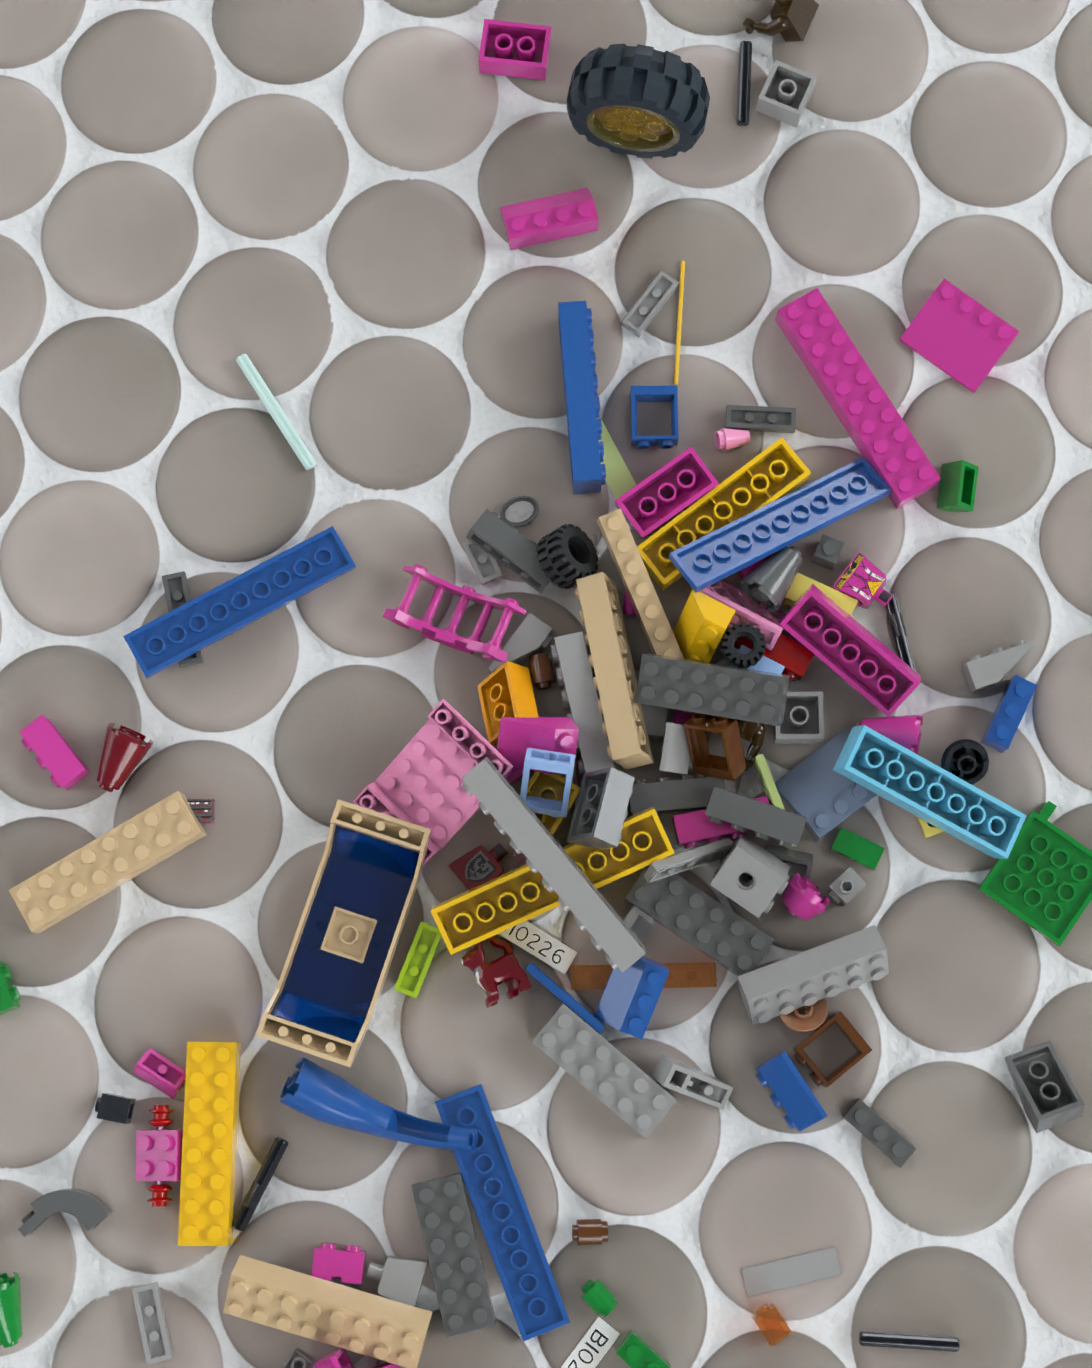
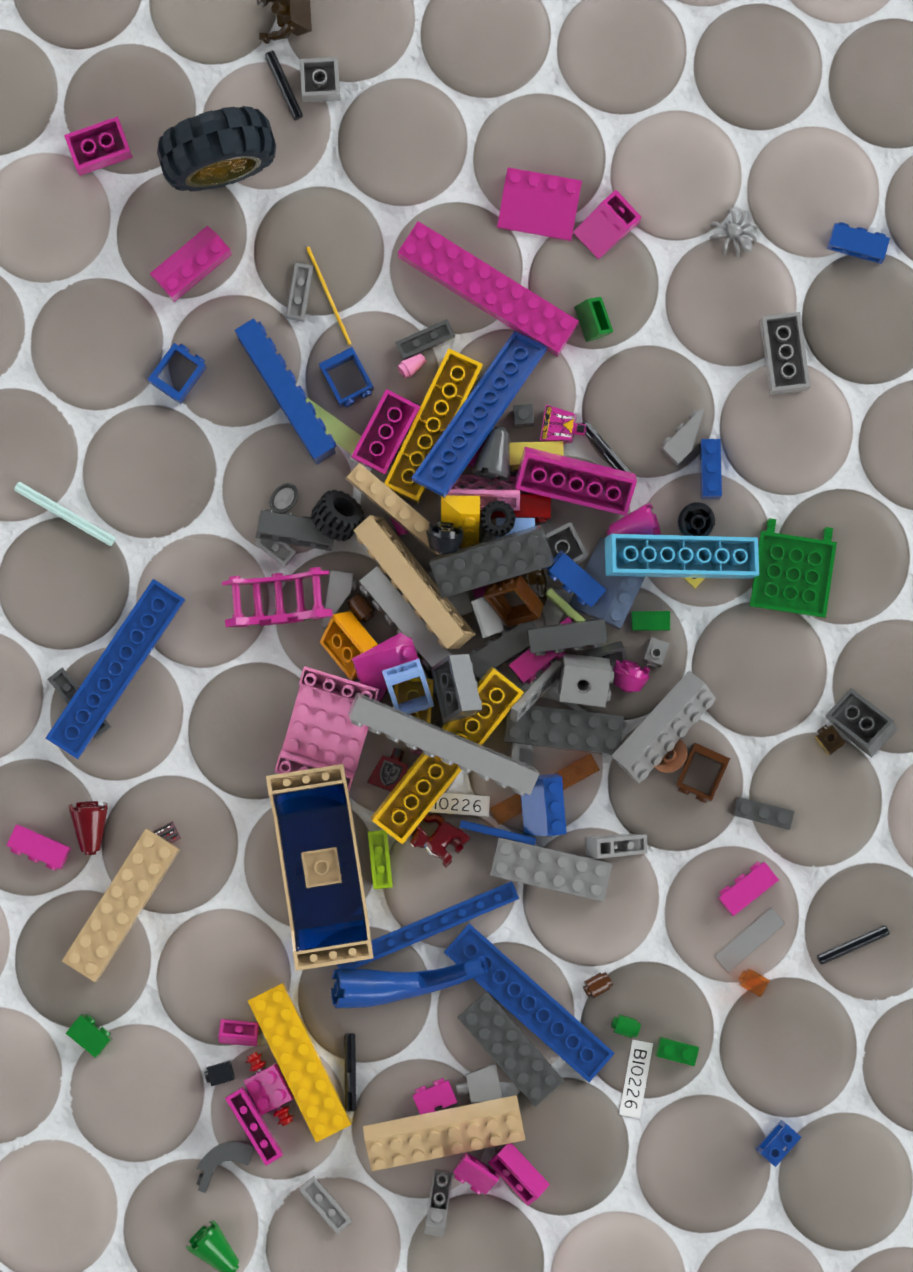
camera: 30 degrees left, 5 degrees up
(120, 1189) = (254, 1126): none -> dark pink brick
(446, 1065) = (438, 922): none -> blue plate
(465, 348) = (164, 387): none -> blue window
(673, 636) = (444, 537): none -> black cone
(790, 1092) = (687, 817): blue slope -> none
(796, 757) = (575, 579): none -> blue brick
(818, 1210) = (747, 888): none -> dark pink brick
(991, 1094) = (829, 747): none -> dark brown brick
(1024, 393) = (607, 224): none -> dark pink slope

